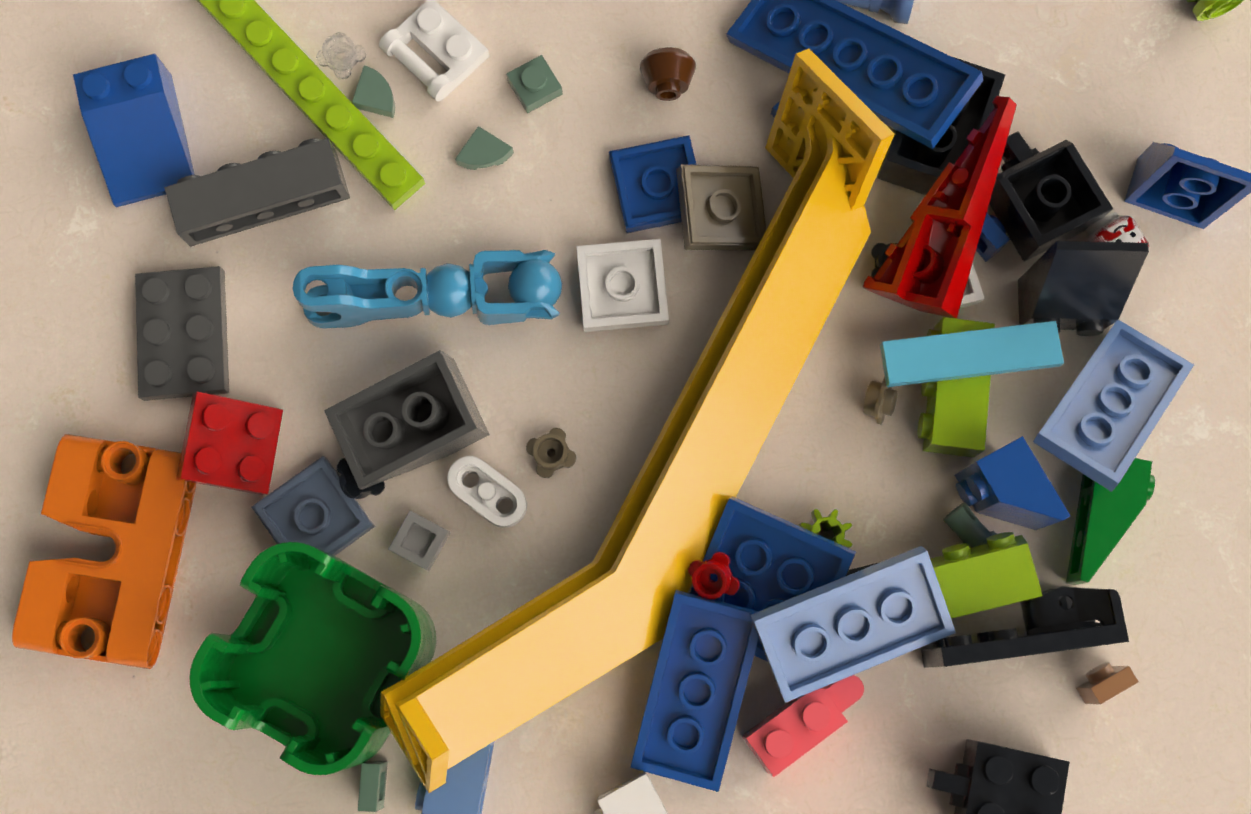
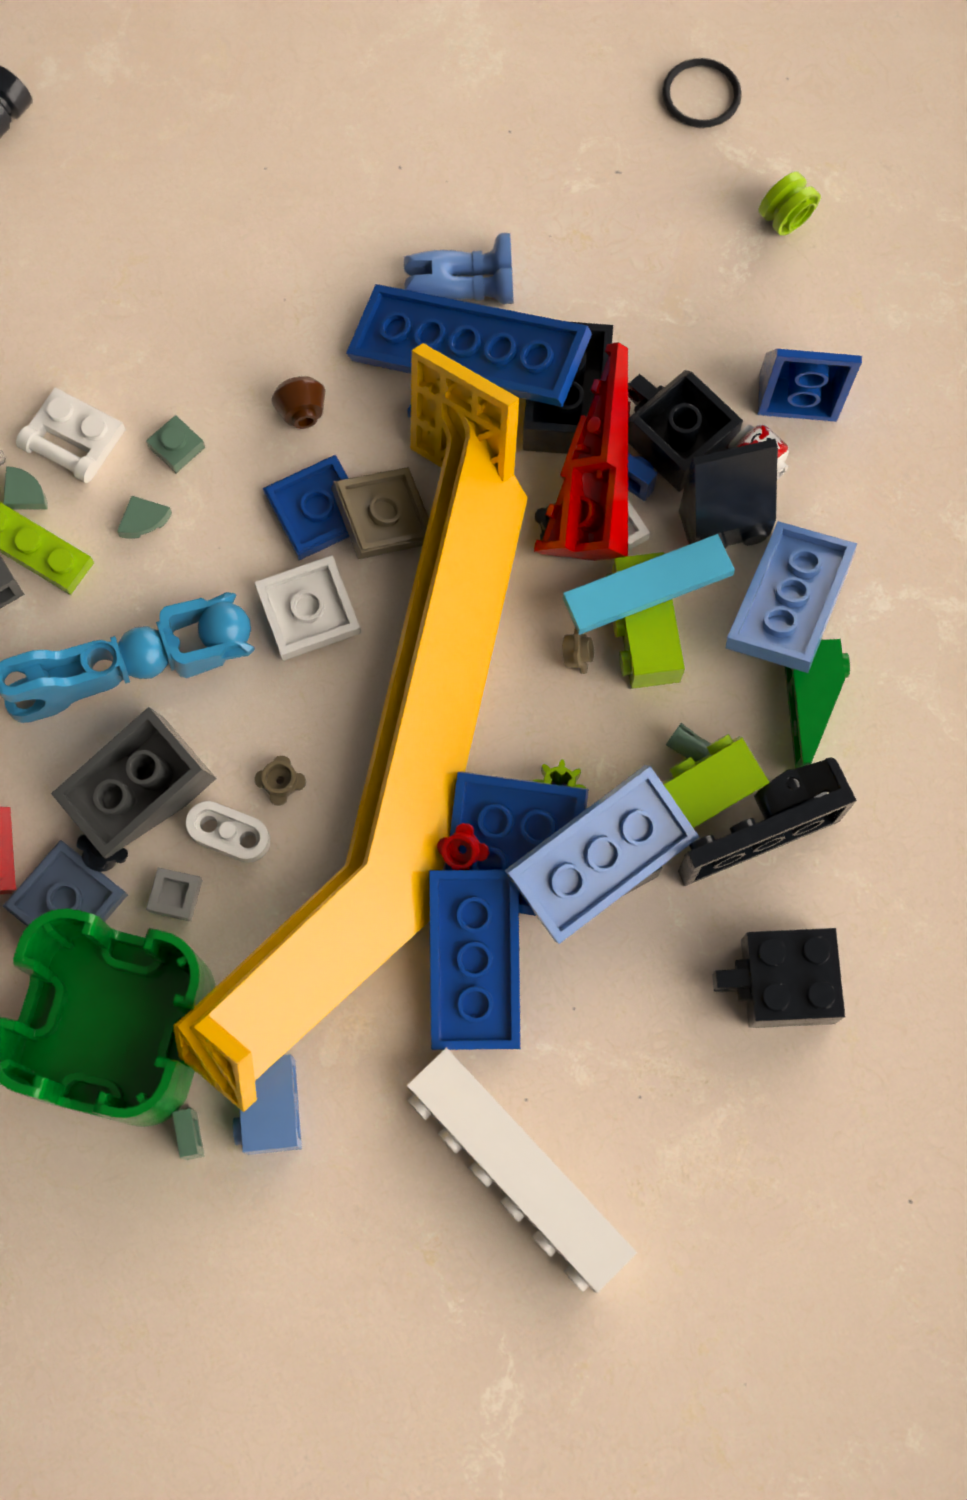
camera: 15 degrees left, 5 degrees down
(802, 724) = (581, 963): coral brick -> none
(1011, 488) = (717, 696): blue slope -> none
(1105, 683) = (852, 851): medium nougat plate -> none

